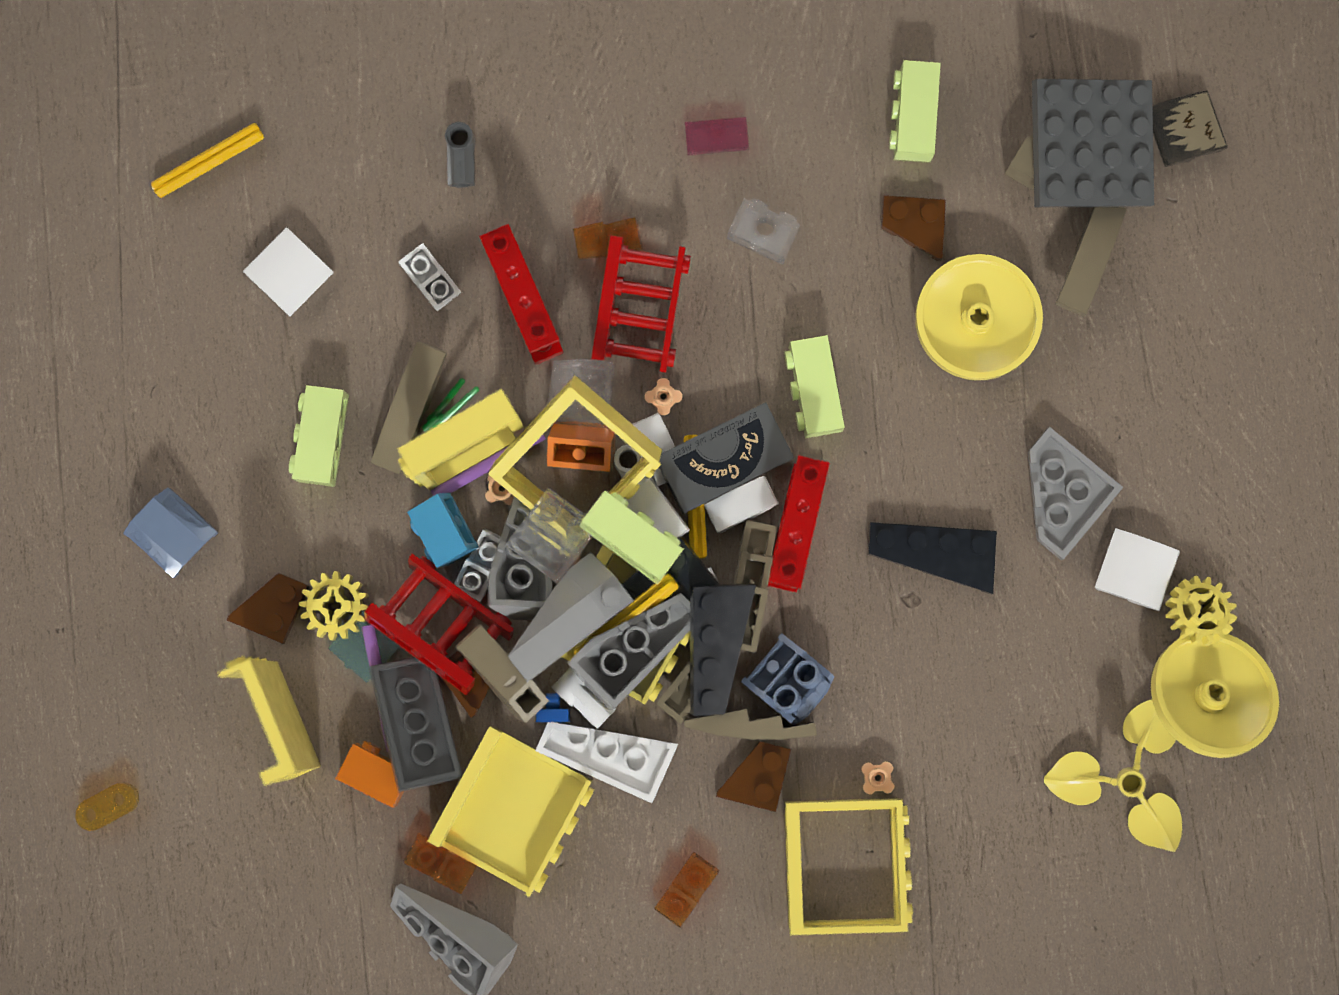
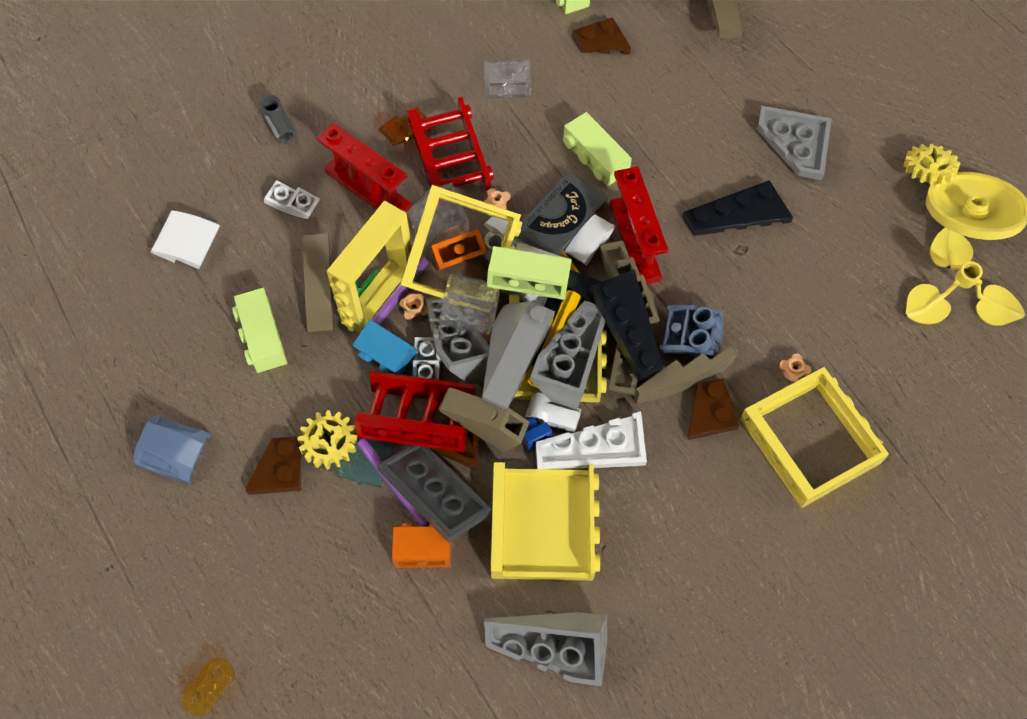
camera: 30 degrees left, 20 degrees down
(207, 160) = (92, 198): yellow axle -> none
(277, 716) = (292, 500): light yellow panel -> none
(439, 864) = (508, 591): clear orange slope -> none
(686, 889) = (708, 514): clear orange slope -> none
(716, 136) = (444, 44): clear pink plate -> none
(978, 317) = (676, 64): light yellow dish -> none
(1137, 569) = (873, 162): white slope -> none

